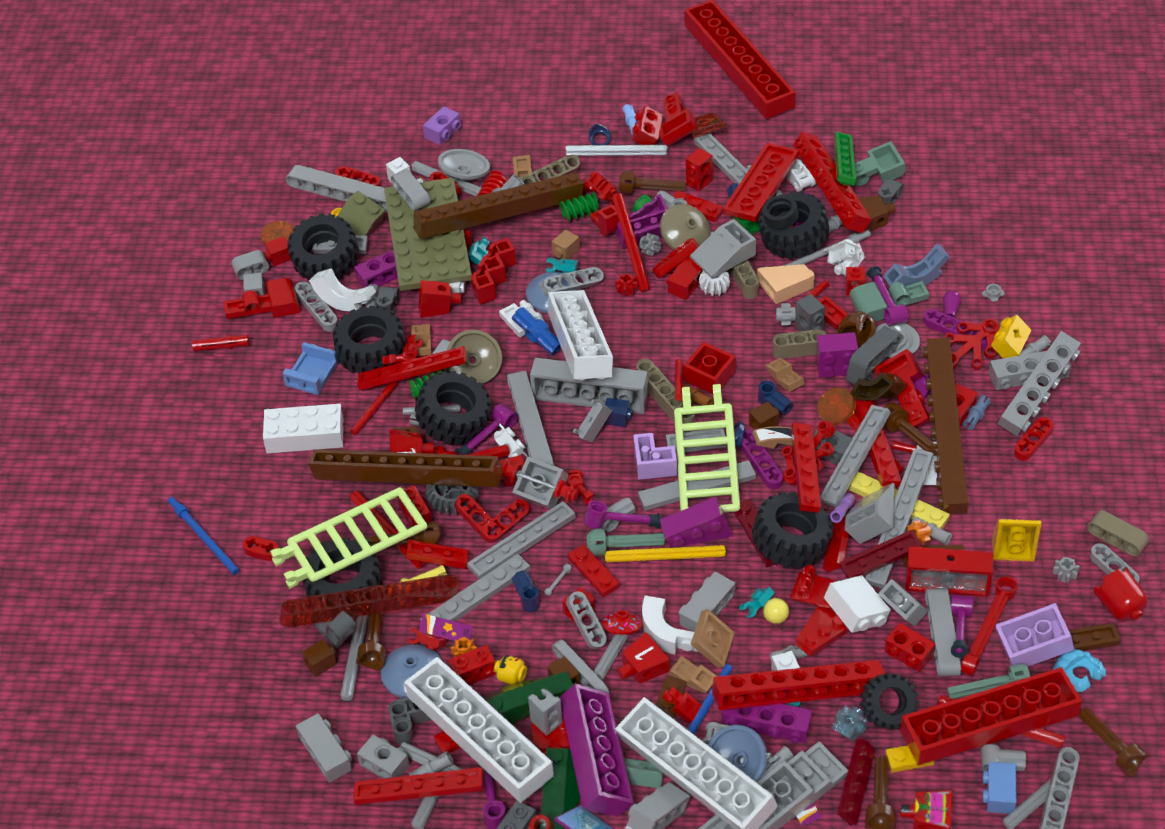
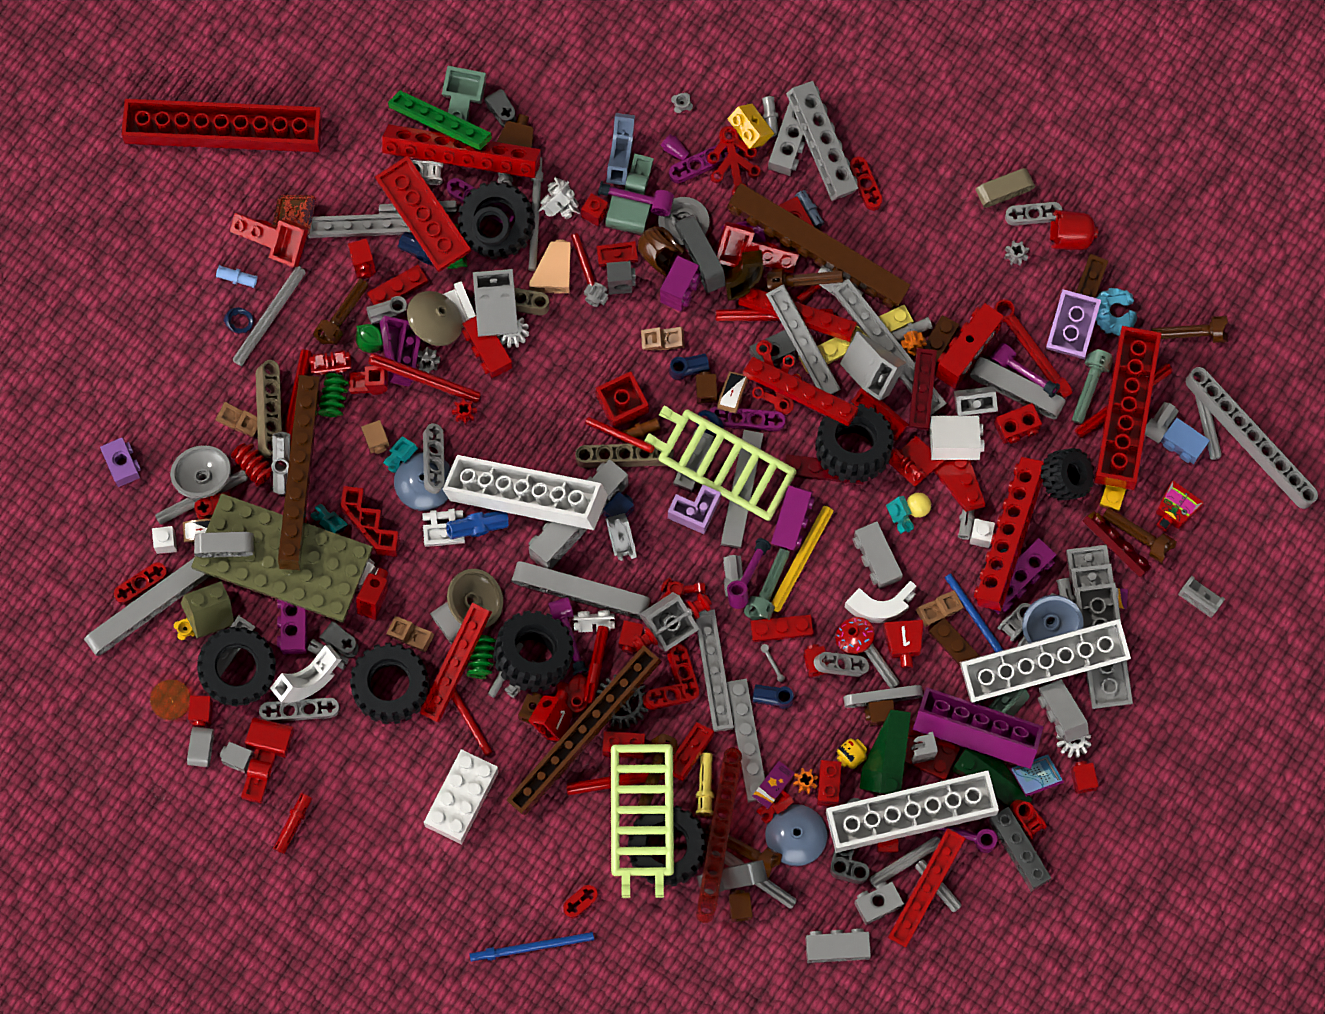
camera: 65 degrees left, 25 degrees up
(311, 369) = (384, 754): medium blue panel -> none
(409, 352) = (433, 657): red piece -> none
(434, 765) = (912, 868): light grey pin -> none
(646, 126) = (265, 270): red brick -> none
(675, 257) = (458, 354): red beam -> none
(684, 704) = (970, 633): red plate -> none
(712, 638) = (920, 572): medium nougat plate -> none
(795, 344) = (643, 297): dark tan beam -> none
(836, 405) = (733, 320): clear orange tile -> none
(840, 511) = (860, 392): medium lavender piece -> none
(850, 722) = (1064, 515): clear light blue brick -> none
(1015, 540) = (969, 272): yellow slope -> none

